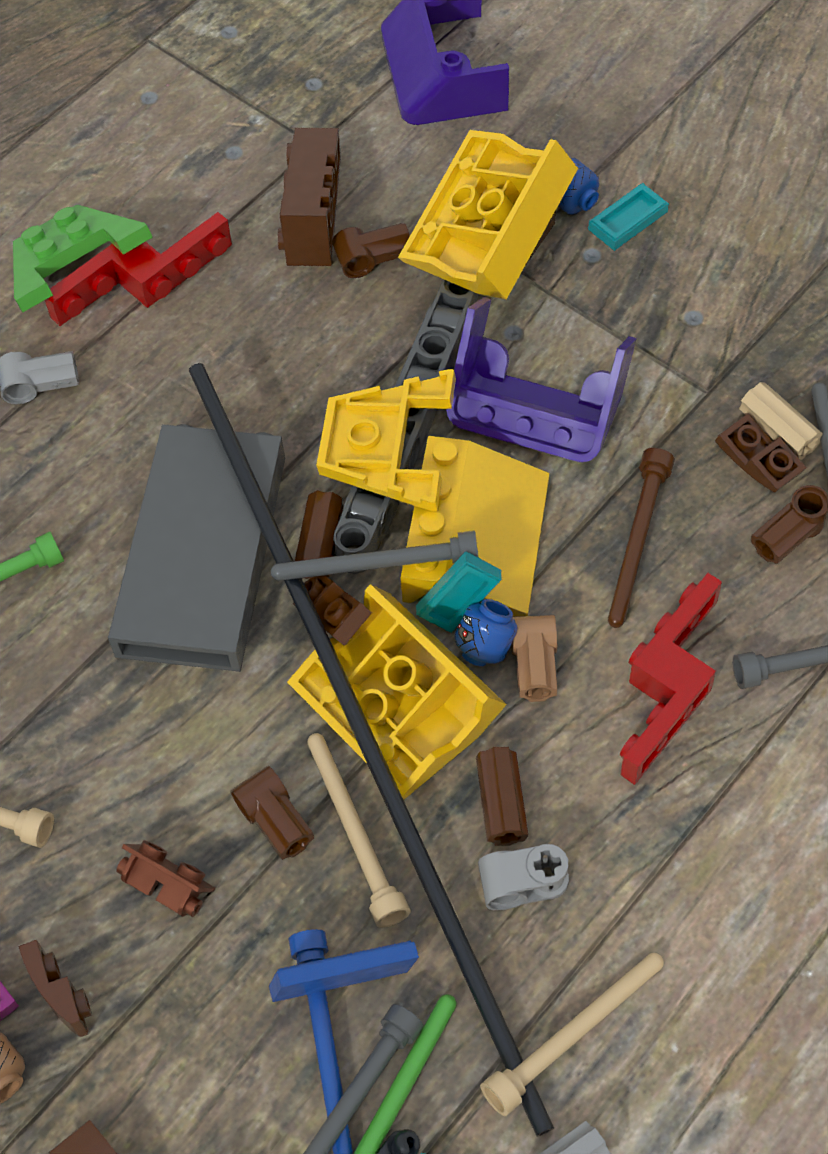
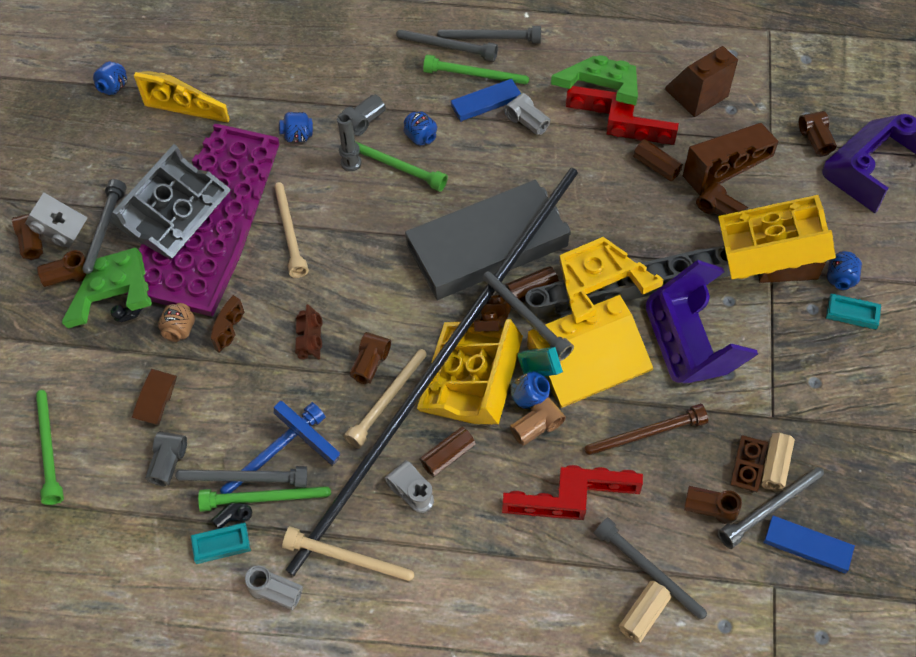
camera: 55 degrees right, 0 degrees up
(174, 145) = (704, 81): none -> reddish brown slope
(246, 273) = (658, 160): none -> reddish brown axle
(342, 82) = (817, 129): none -> reddish brown piece

